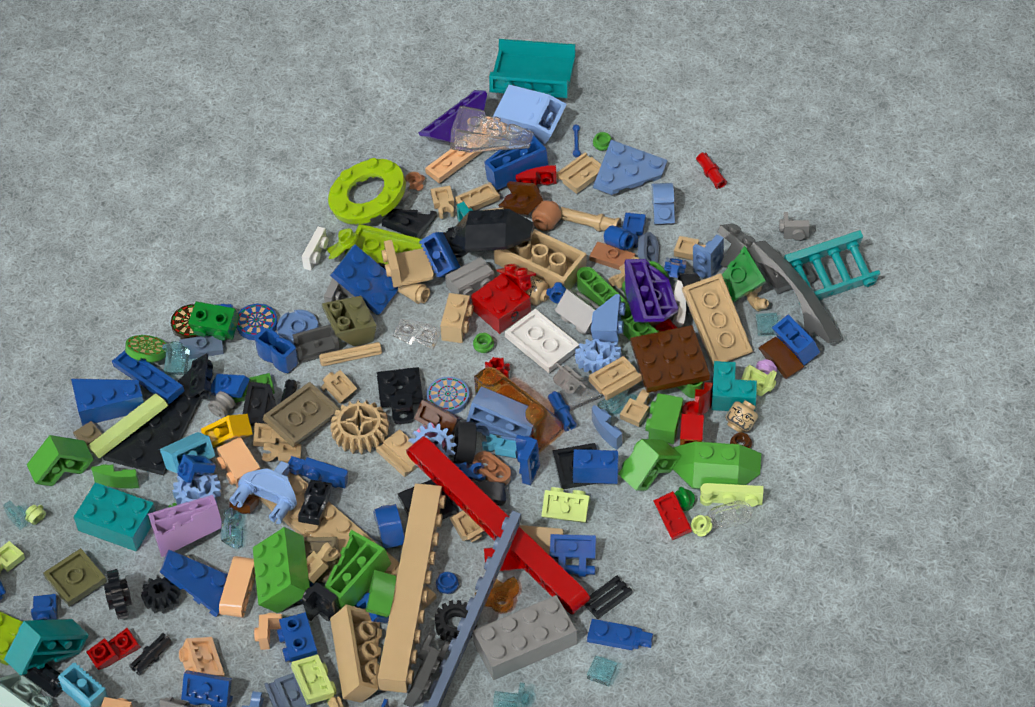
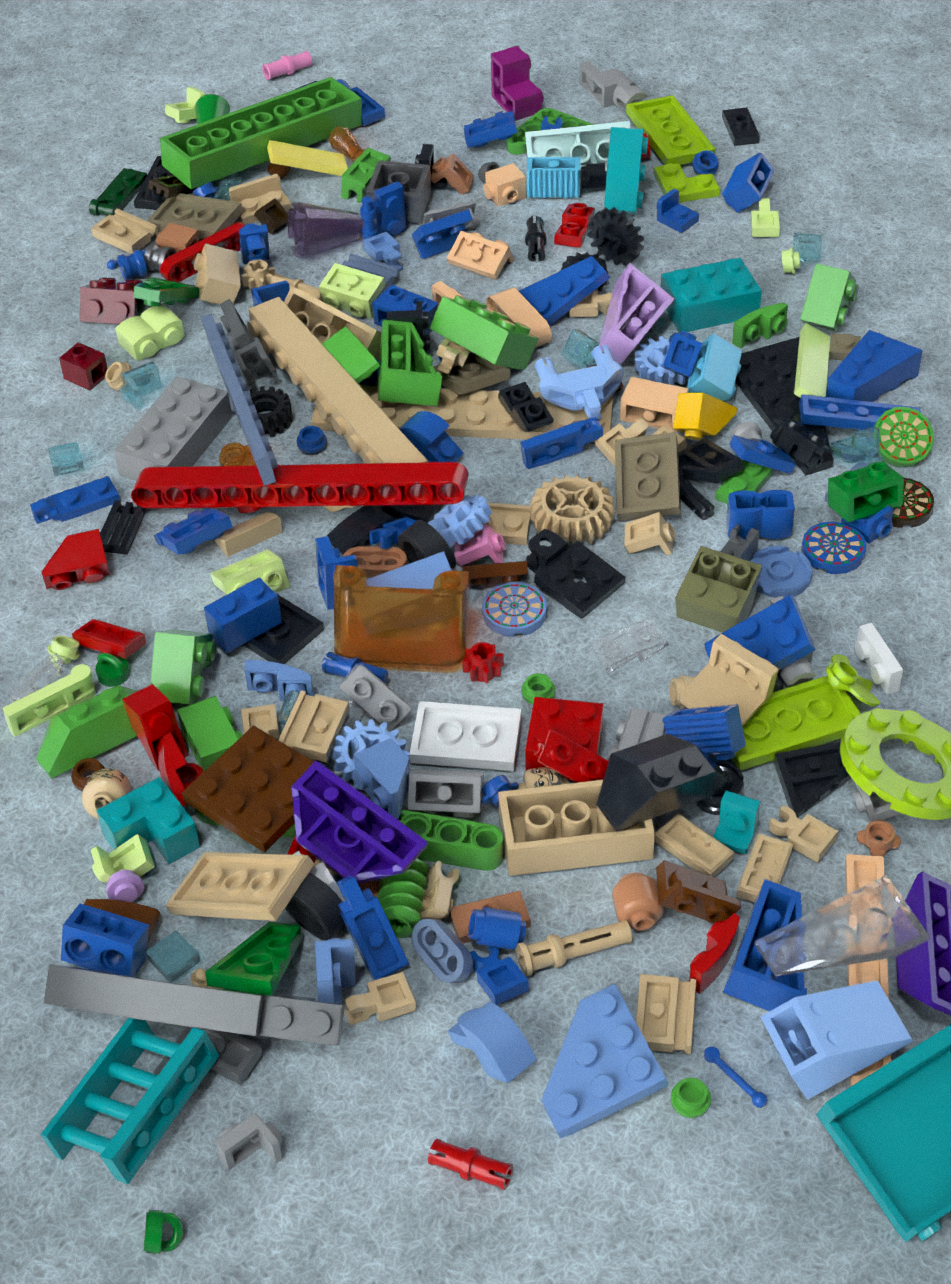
camera: 140 degrees right, 5 degrees down
(74, 577) = (682, 244): olive plate -> none
(350, 354) = (666, 596): tan axle -> none
(455, 318) = (600, 681): tan brick -> none
(654, 576) = (76, 560): none -> red slope
(855, 220) = (153, 1232): none -> green tile

